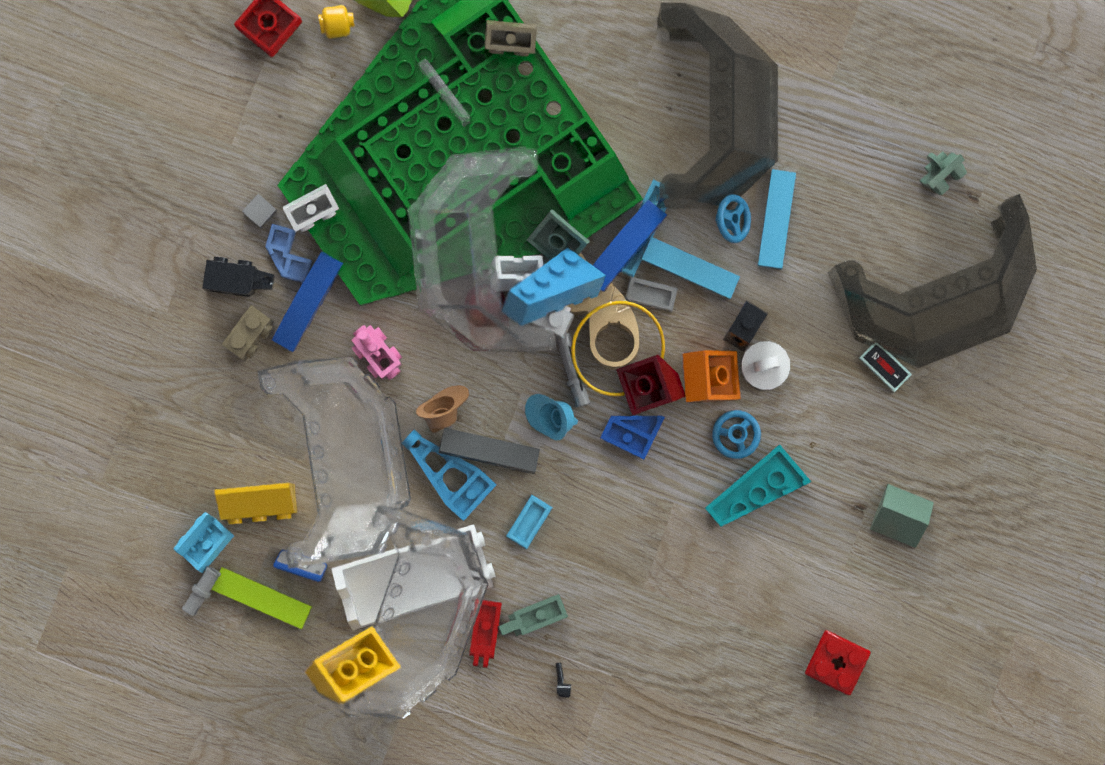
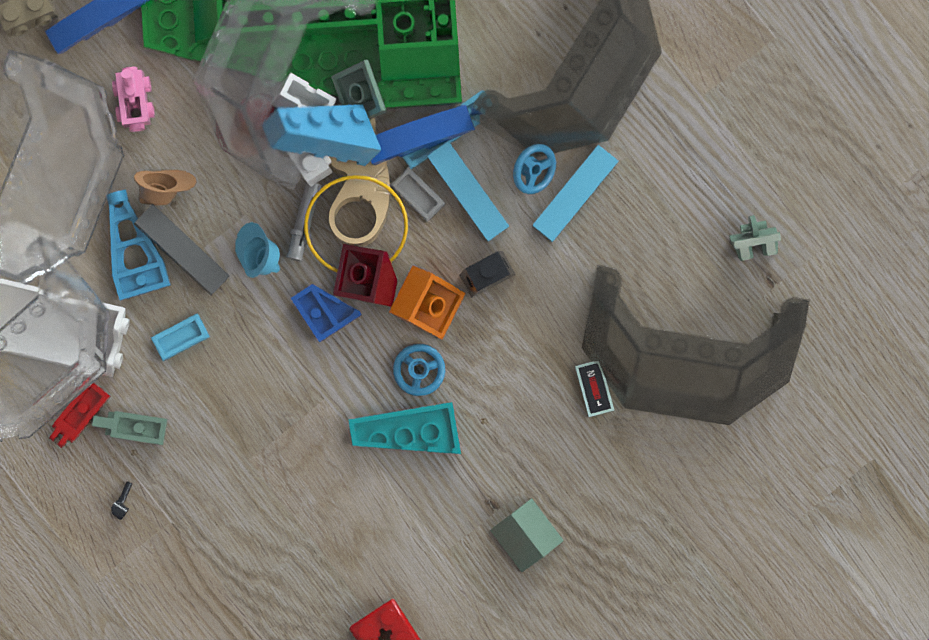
camera: 30 degrees right, 0 degrees up
(765, 365) = (483, 322): white tile -> none

